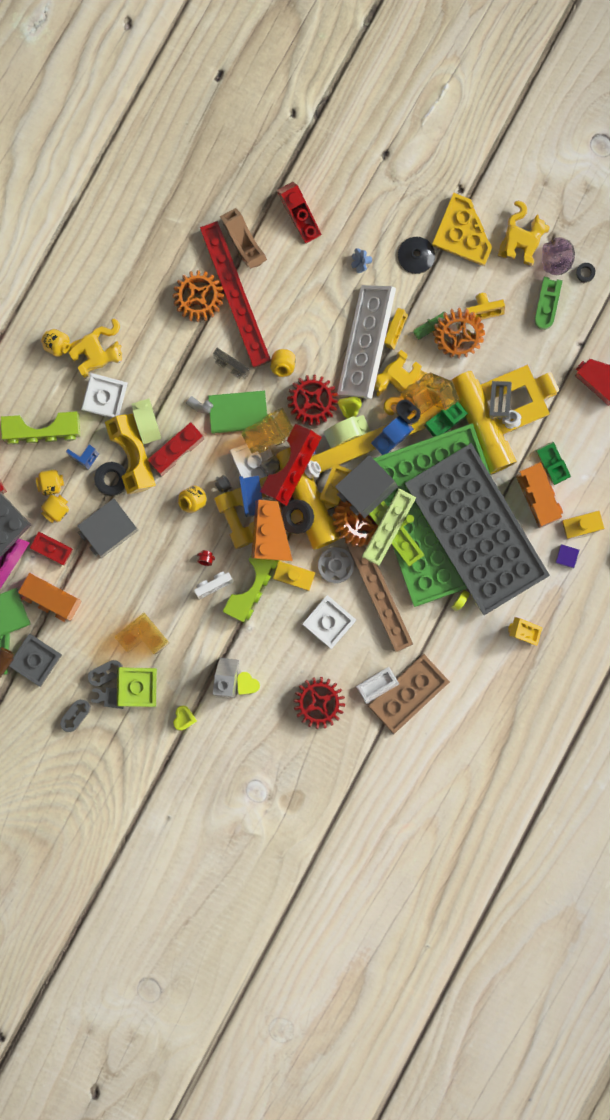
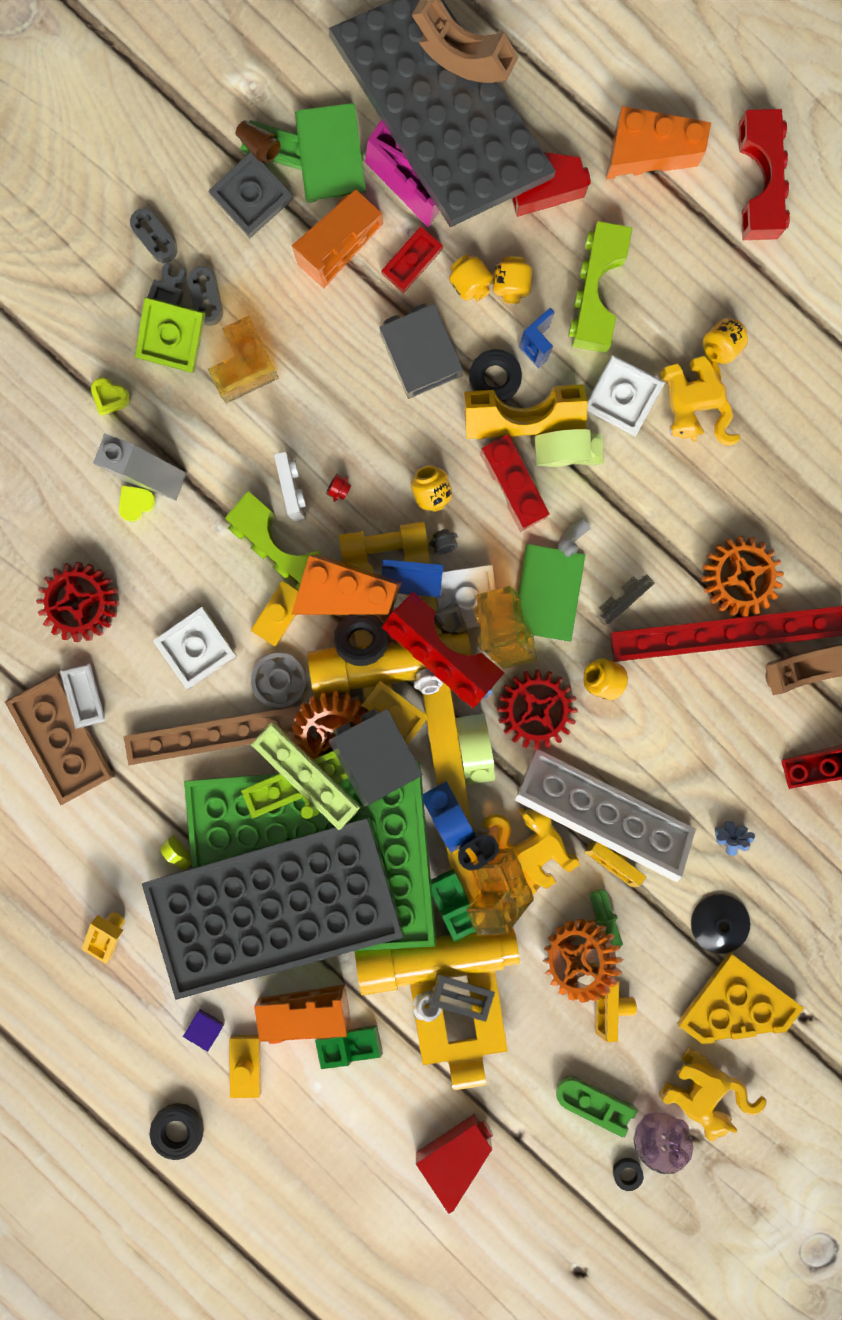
camera: 105 degrees right, 5 degrees up
(350, 406) = (512, 763): neon yellow tile -> none

